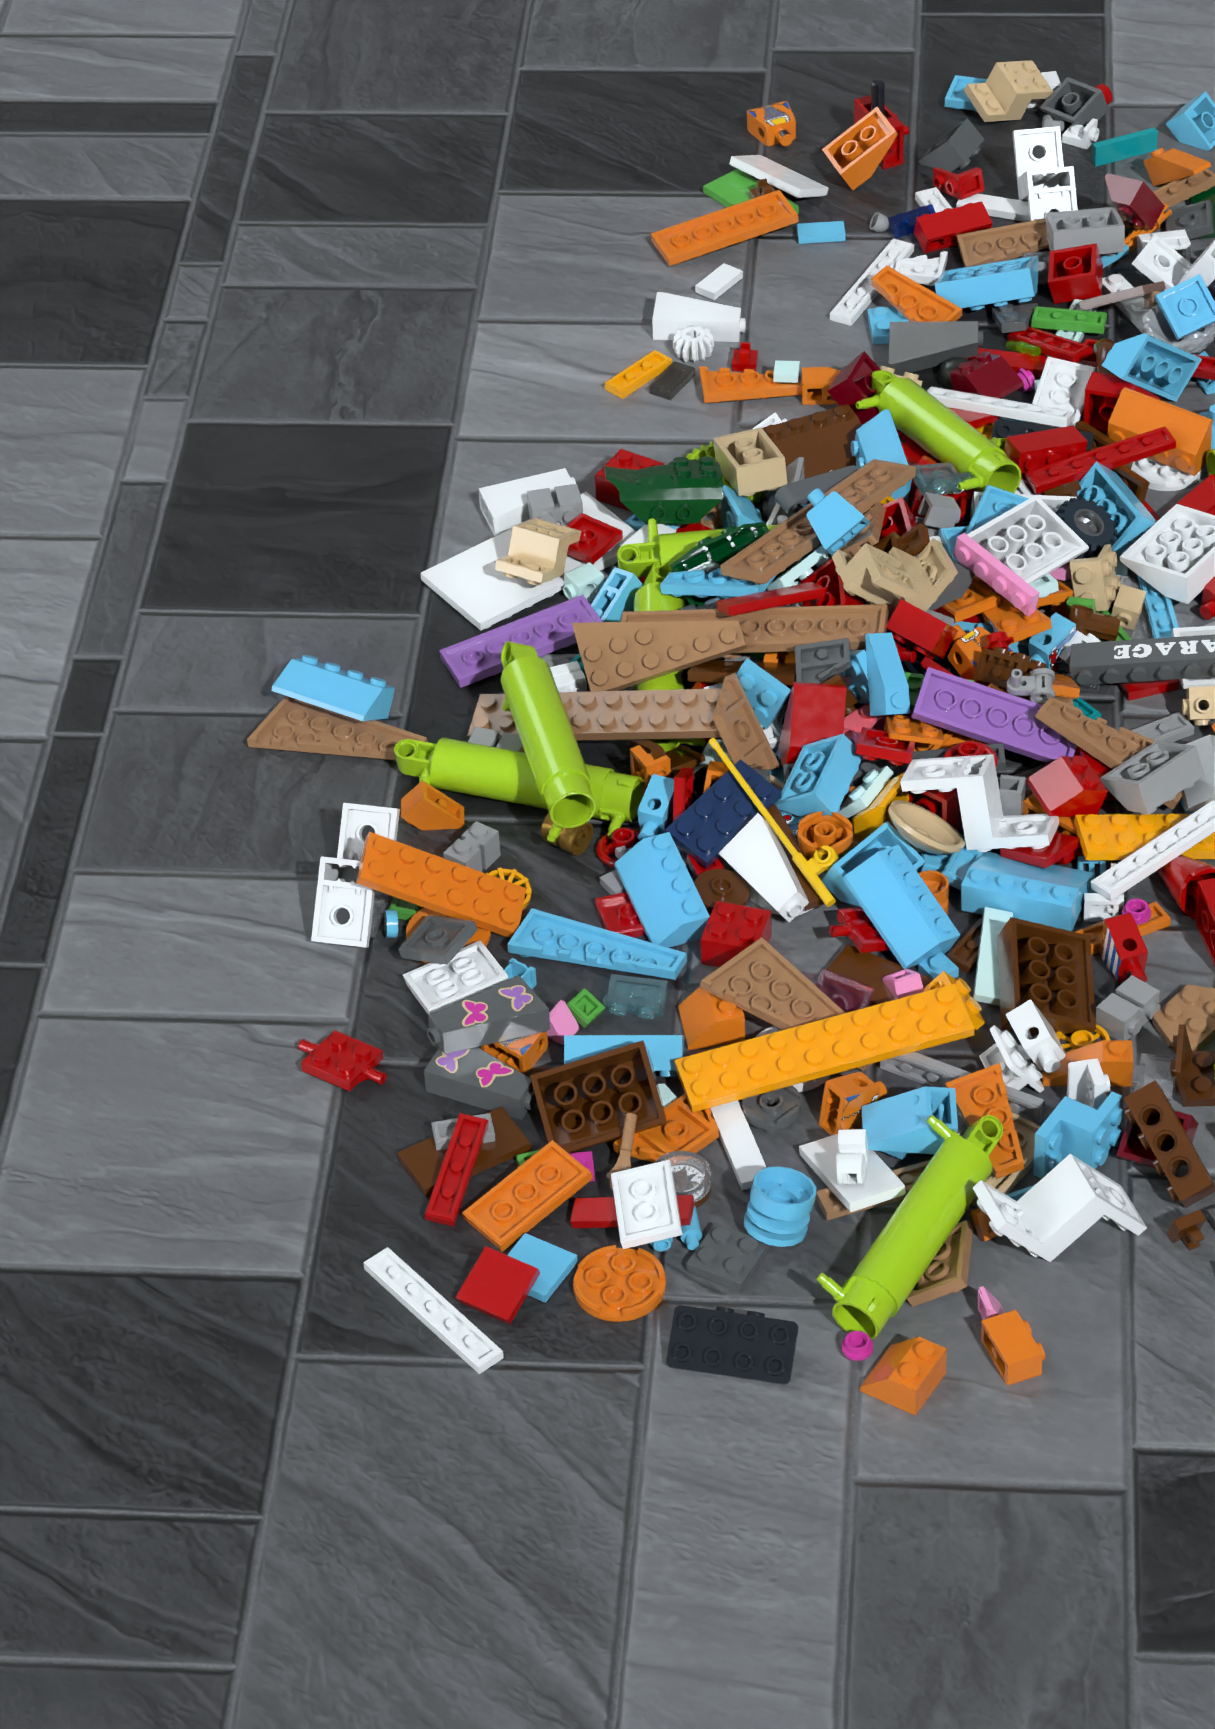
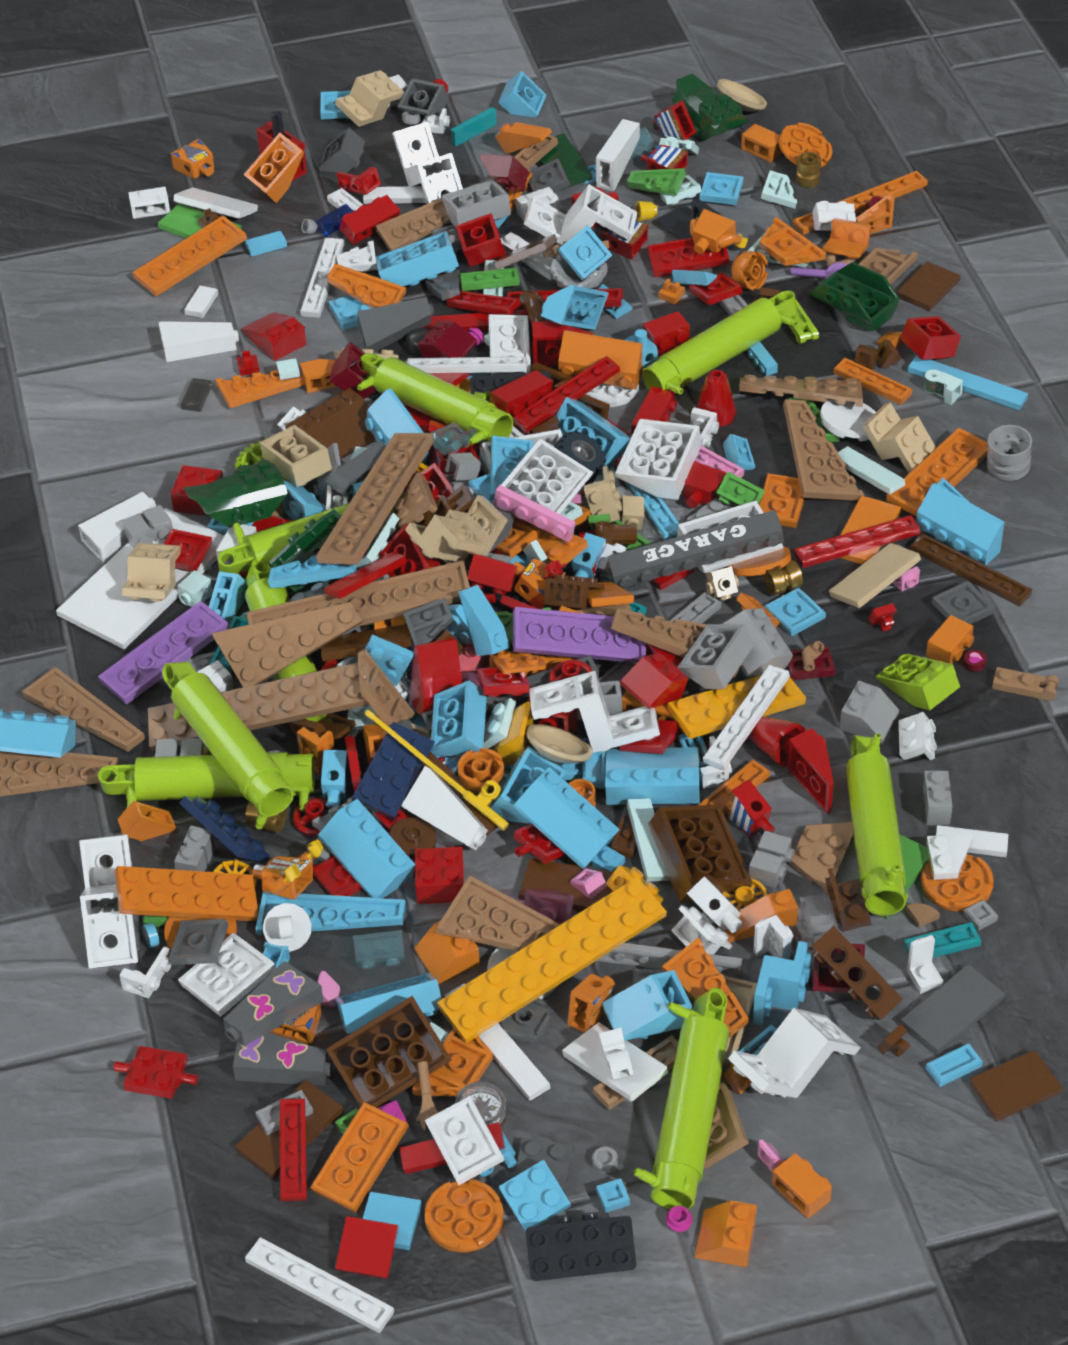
camera: 20 degrees left, 5 degrees up
(369, 970) = (142, 984): none -> white bracket
(395, 662) = (66, 697): none -> medium nougat wing
(514, 834) = (223, 827): none -> dark blue plate
(543, 947) = (287, 926): none -> white tile
(566, 897) = (288, 875): none -> orange torso
(585, 1008) = (340, 970): bright green tile -> none
(638, 374) = (167, 395): light orange tile -> none
(693, 343) = (202, 359): white gear -> none
(701, 161) = (149, 202): none -> white brick
(704, 1279) = (534, 1195): none -> medium azure plate
(780, 1206) = (573, 1112): medium azure wheel -> none
(791, 334) = (276, 334): none -> red slope
(792, 1304) = (613, 1195): none -> medium azure plate
(800, 1268) = (605, 1160): none -> light grey tile
(834, 520) = (396, 497): medium azure torso -> none
(985, 619) = (534, 551): none -> light aqua tile
(1024, 347) = (463, 309): clear neon green piece -> none
(1032, 685) = (602, 601): light grey piece -> none
(1139, 910) = (744, 772): dark pink plate -> none

